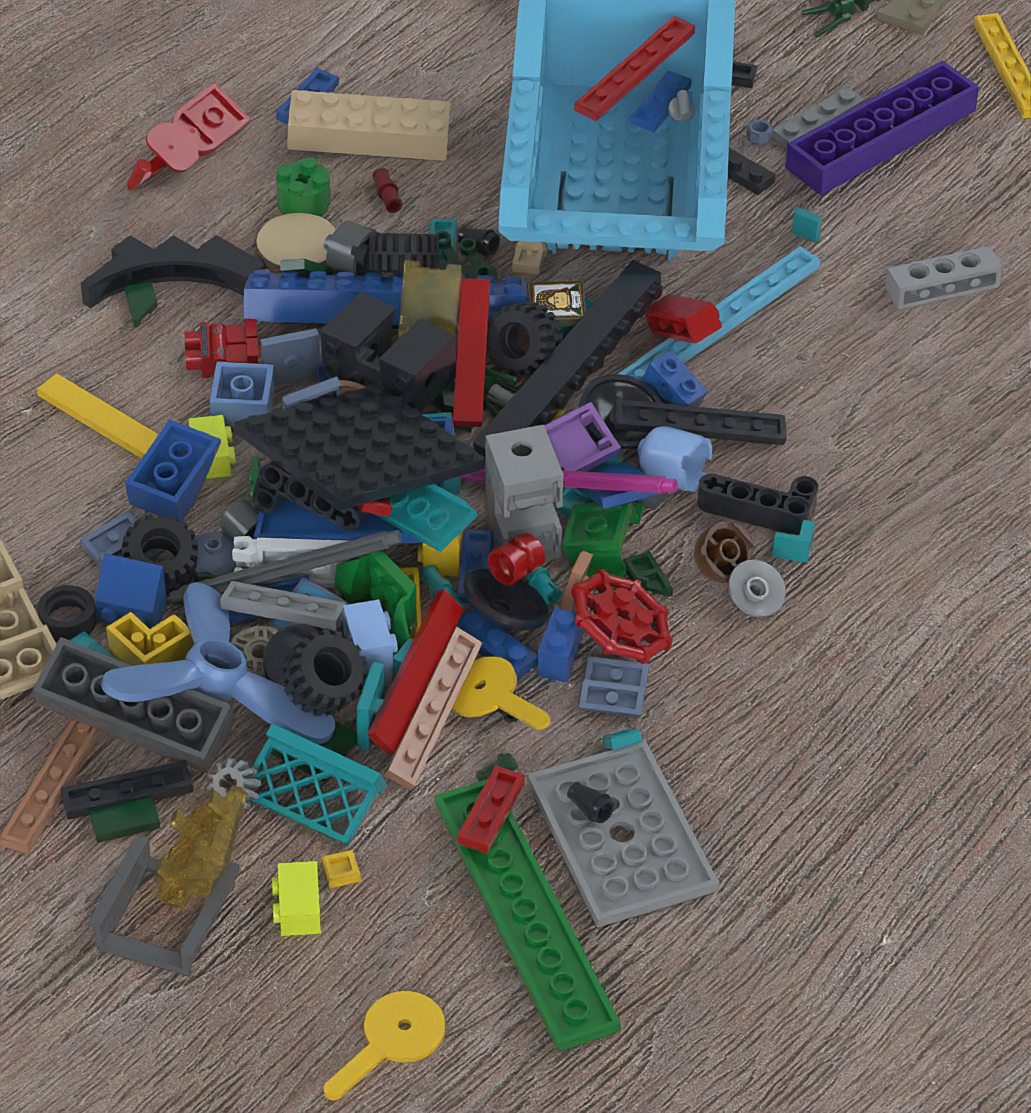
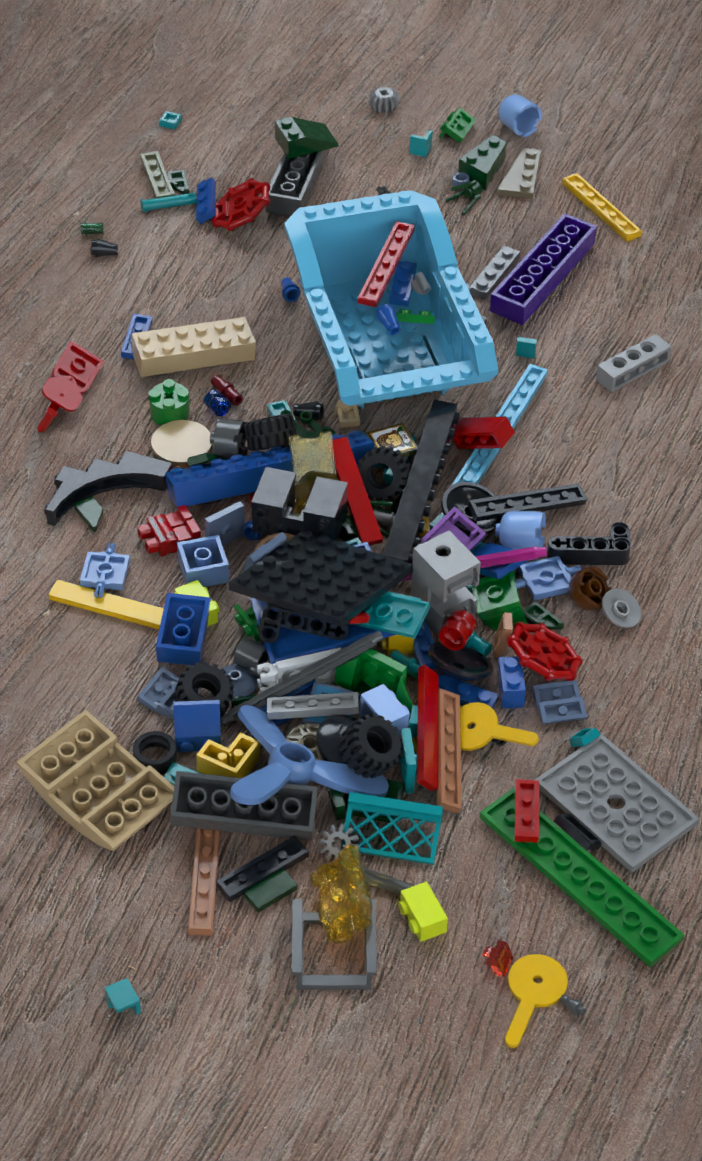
camera: 20 degrees left, 0 degrees up
(120, 376) = (105, 570): none -> medium blue plate
(259, 735) = (337, 803): none -> dark green tile
(264, 843) = (385, 882): none -> dark grey axle
(340, 869) = (439, 882): yellow tile -> none
(365, 203) = (217, 403): none -> clear blue wheel
(366, 983) = (499, 957): none -> clear red tile
(433, 1071) = (575, 1006): none -> dark grey piece
(503, 760) = (509, 781): clear green pin -> none
(549, 856) = (577, 832): none -> black tile
(592, 803) = (592, 787): black cone -> none
(603, 138) = (388, 318): none -> blue cone
(639, 143) = (422, 317): none -> green plate
(674, 381) = (498, 478): blue brick -> none
(674, 524) = (546, 577): none -> medium blue plate
(795, 546) = (629, 572): teal panel -> none

